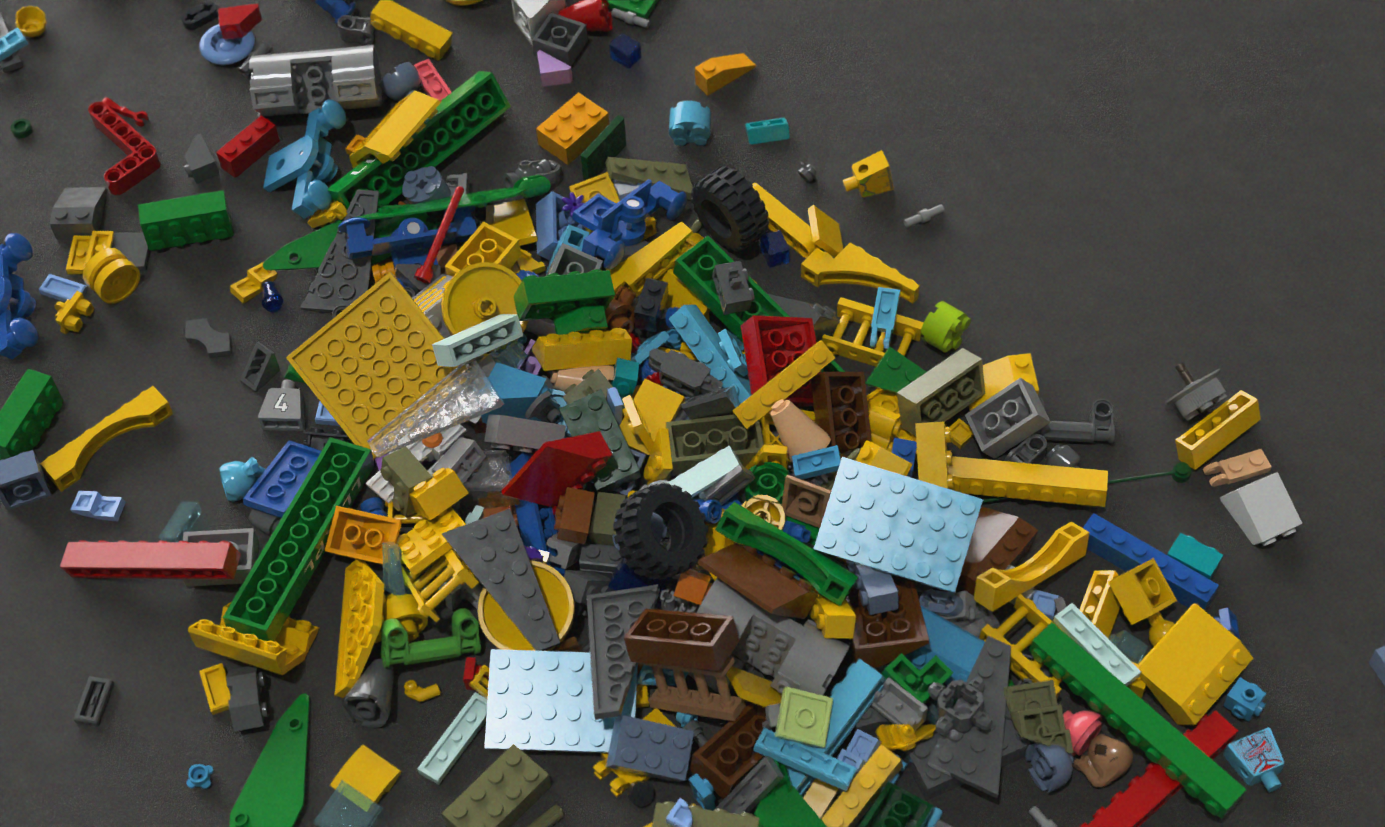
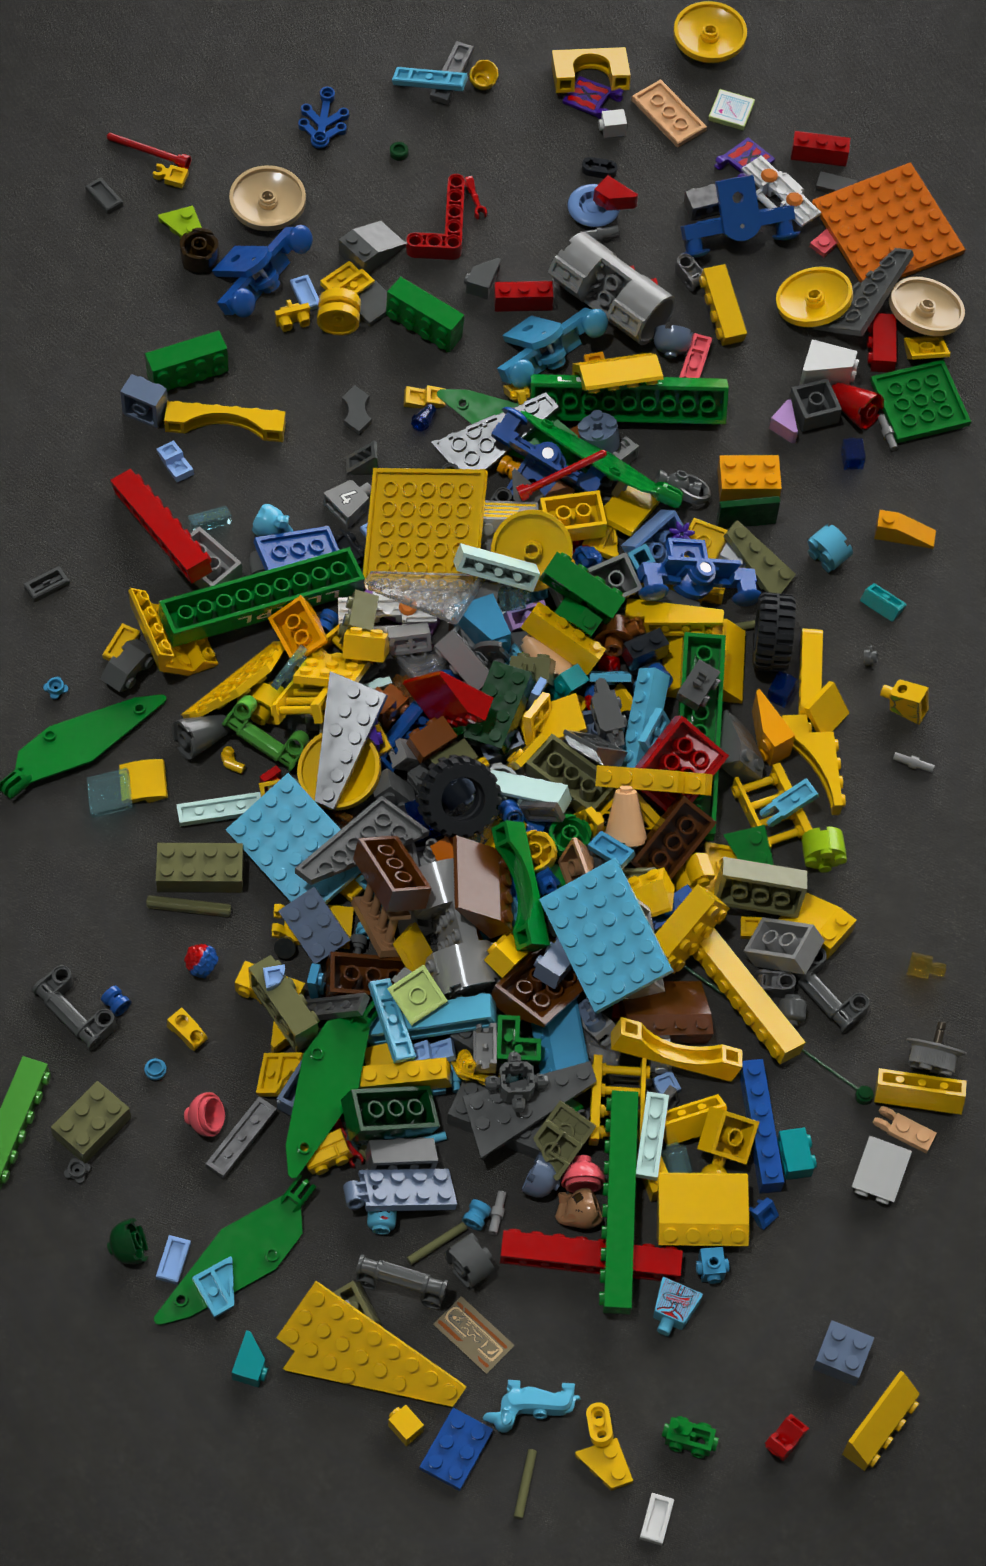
camera: 40 degrees right, 5 degrees up
(803, 279) = (771, 731): none -> light orange slope
(1106, 343) = (921, 965): none -> clear yellow plate

